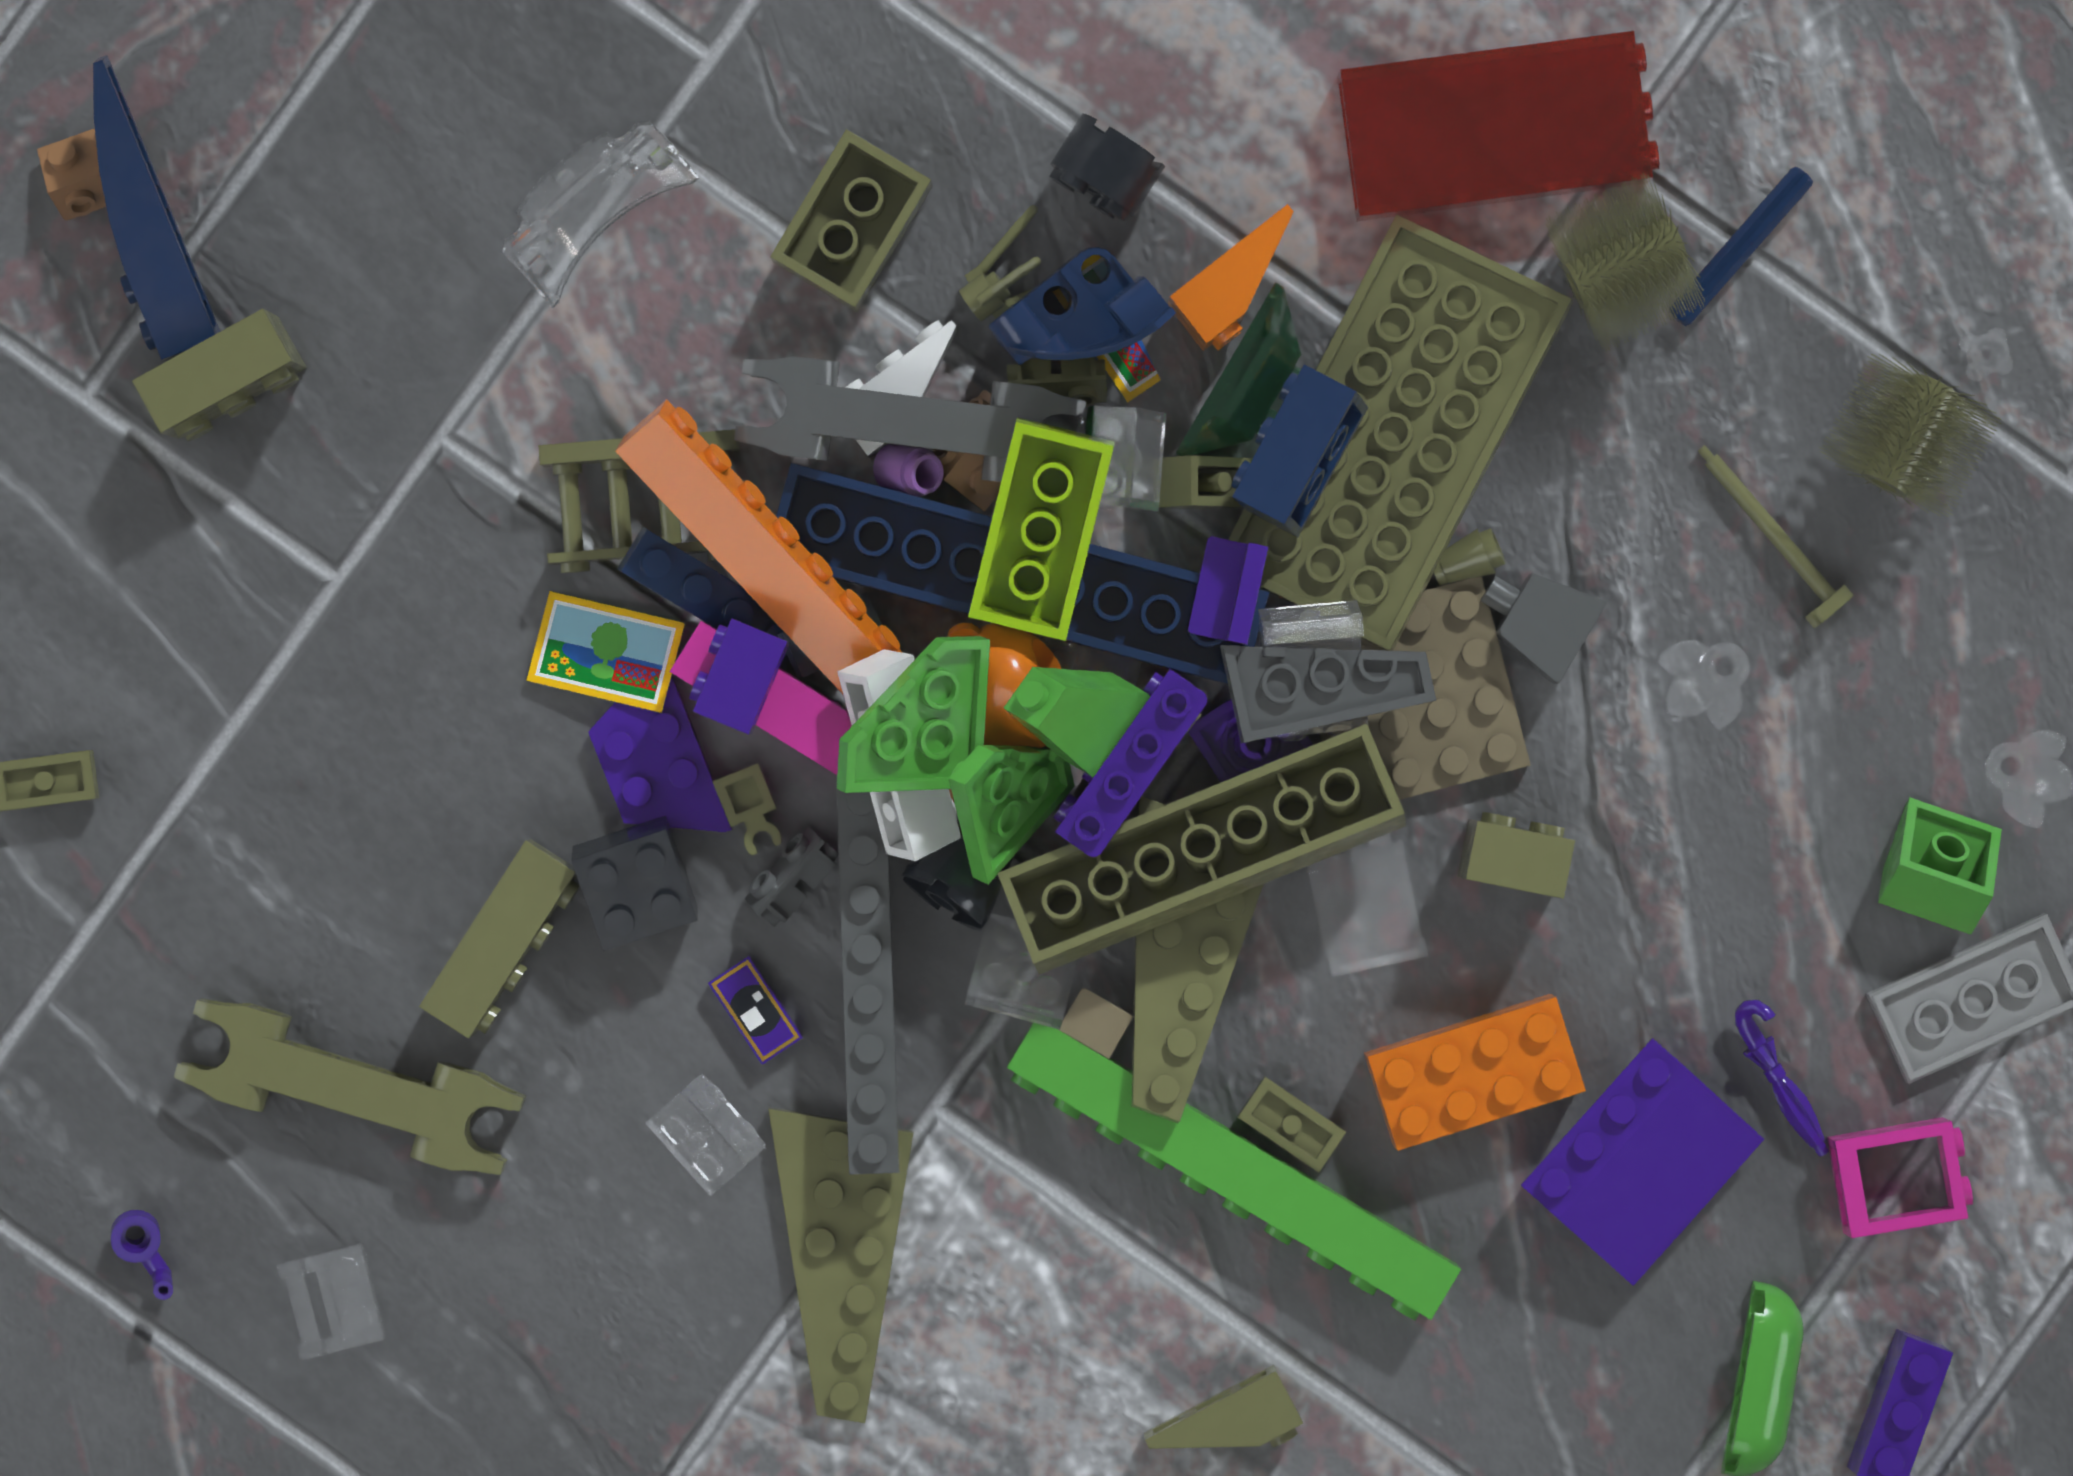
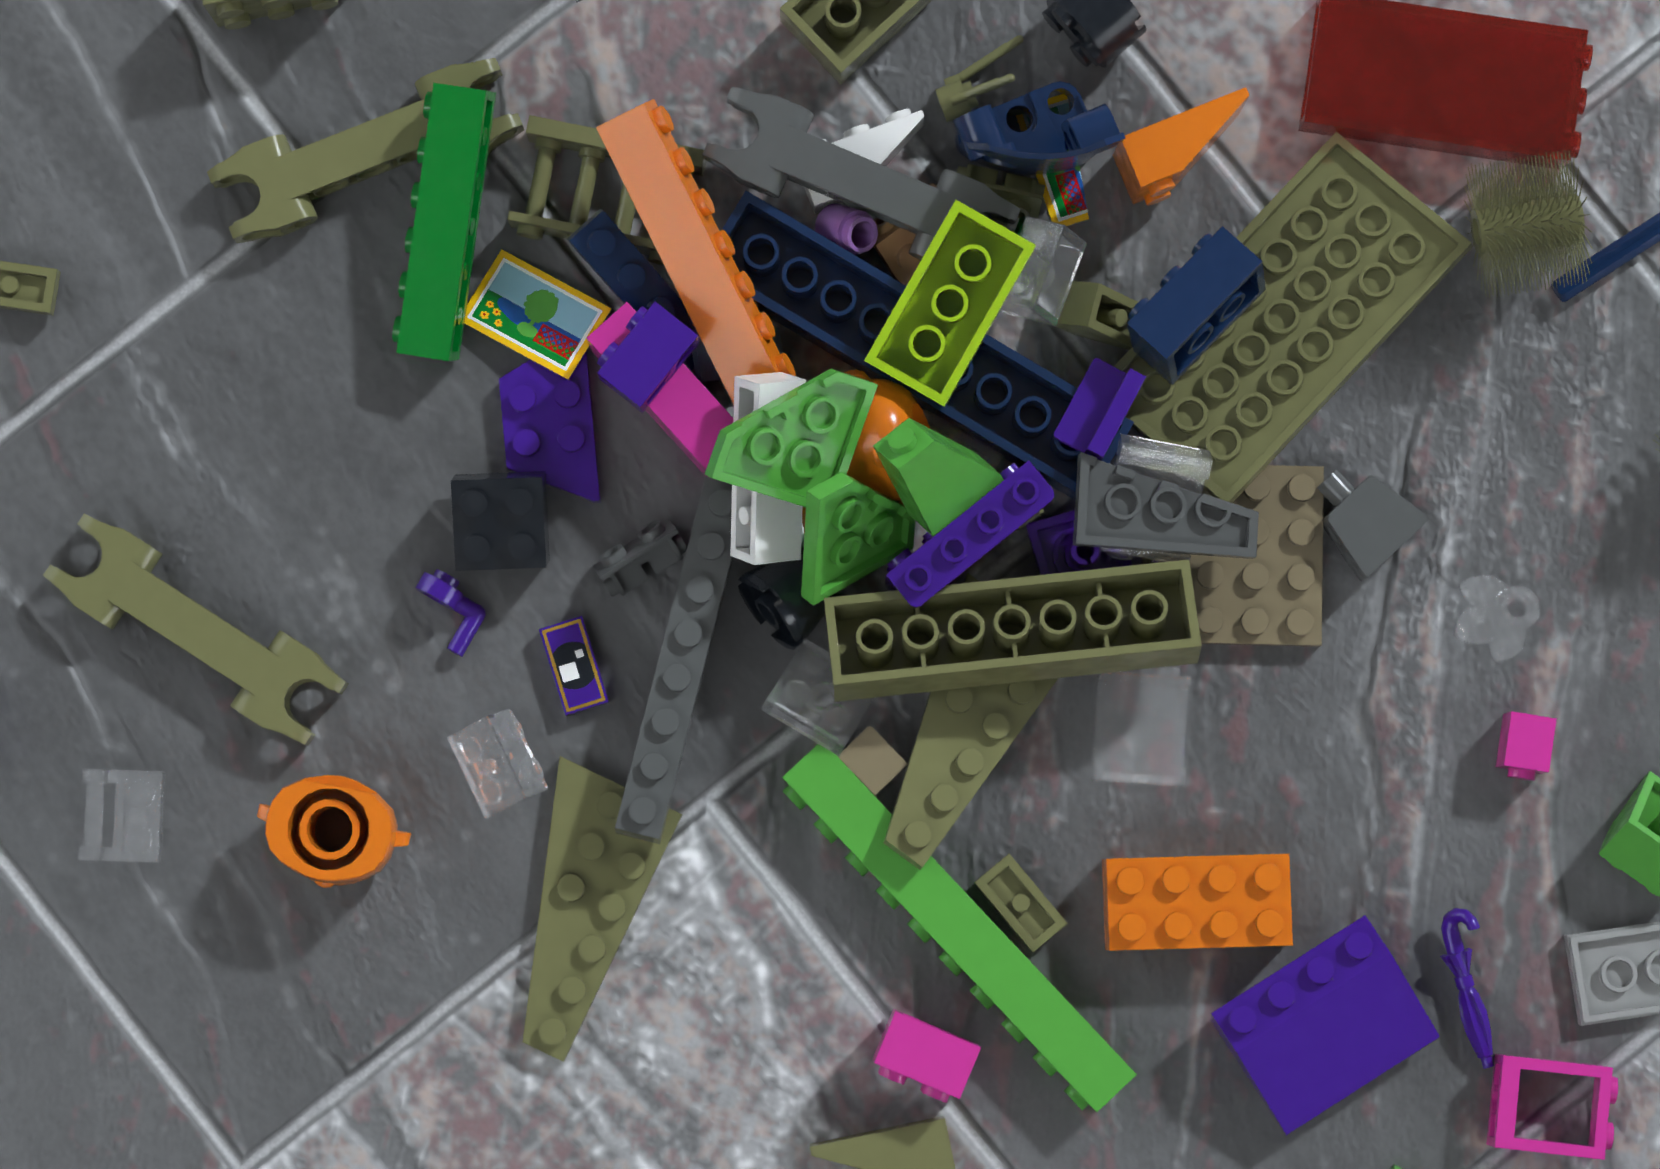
camera: 20 degrees right, 5 degrees down
(443, 477) = (295, 178): none -> olive piece
(483, 585) = (444, 222): none -> green brick
(500, 939) = (367, 536): olive brick -> none
(521, 1281) = (292, 824): none -> orange piece
(595, 970) = (443, 590): none -> dark purple plate
(747, 799) = (621, 478): olive plate -> none
(1237, 1312) = (925, 1055): none -> dark pink brick
(1249, 381) = (1165, 237): clear green wedge -> none
(1470, 558) = (1317, 448): olive cone -> none
(1515, 857) = (1288, 719): olive brick -> none
(1772, 809) = (1525, 745): none -> dark pink brick
(1831, 599) = (1626, 574): olive piece -> none

